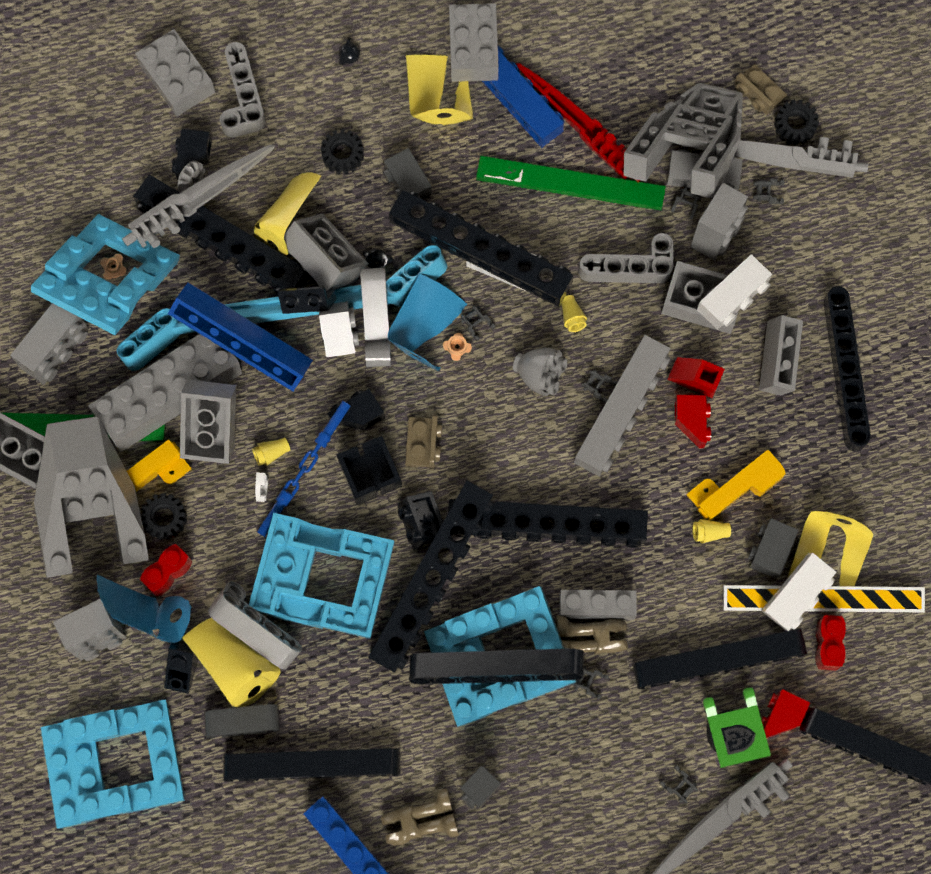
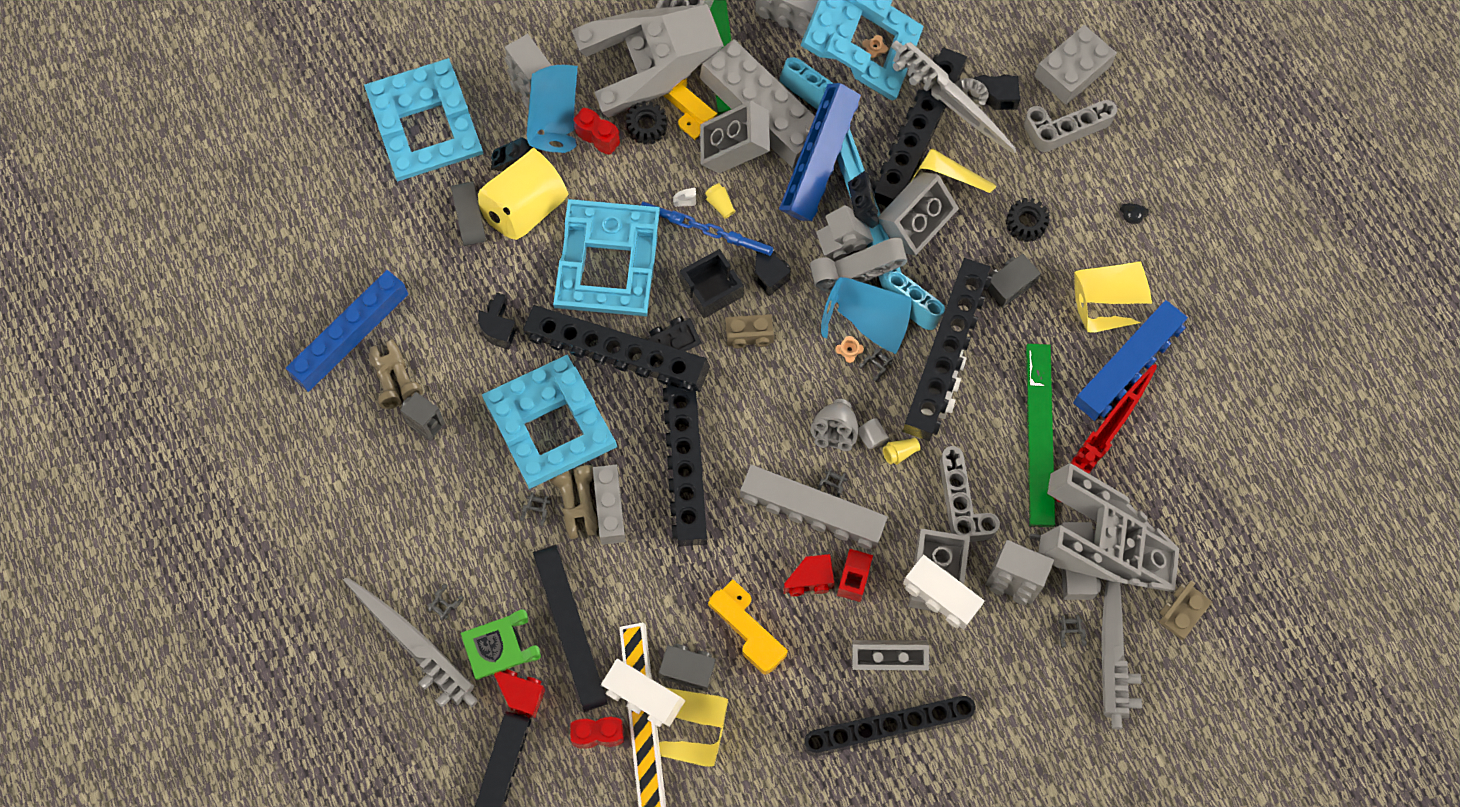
camera: 80 degrees right, 5 degrees down
(252, 627) = (551, 205): light grey beam -> none
(311, 764) = (434, 277): black beam -> none
(375, 256) = (926, 262): black piece -> none
(383, 706) = (494, 326): none -> black brick
(473, 42) = (1163, 313): light grey brick -> none
(497, 666) = (533, 412): black beam -> none
(555, 336) = (873, 434): none -> light grey brick
(710, 530) = (698, 605): light yellow cone -> none
(796, 109) = (1169, 646): black tyre -> none

